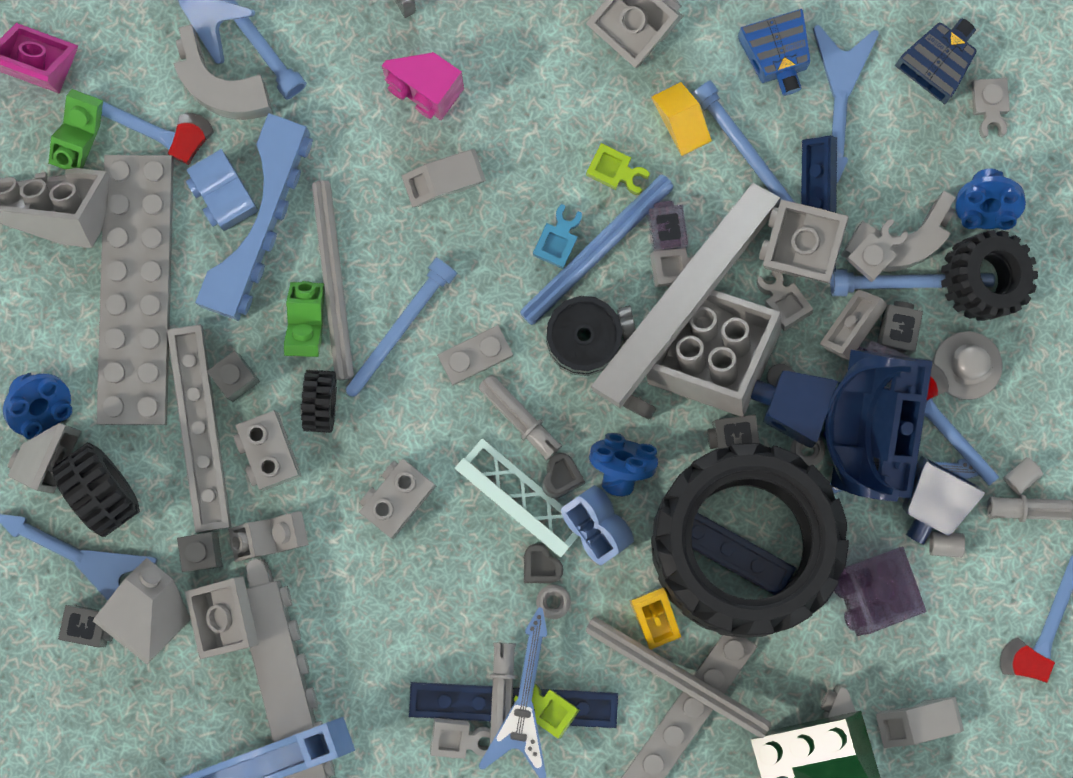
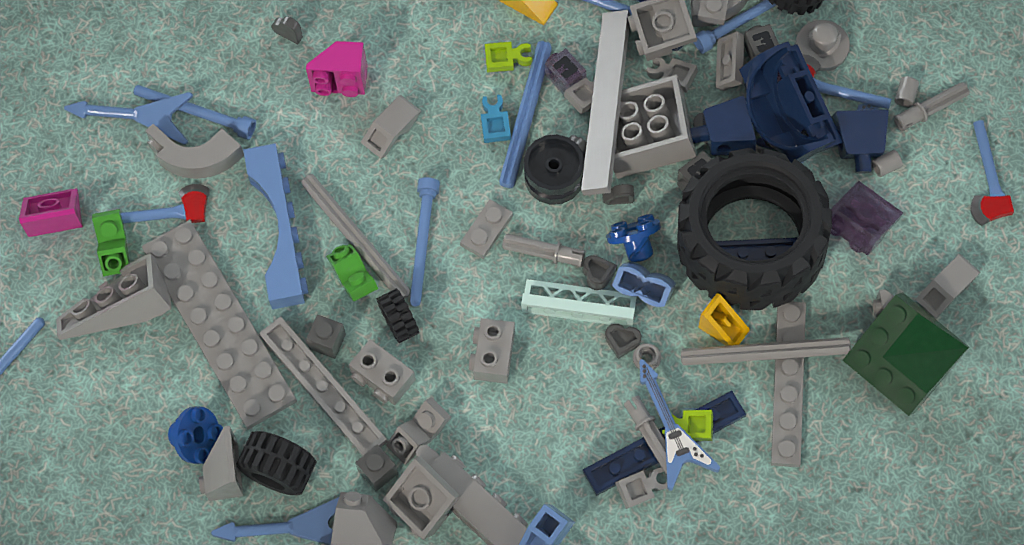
camera: 30 degrees left, 15 degrees down
(221, 190) = (240, 221): medium blue brick -> none

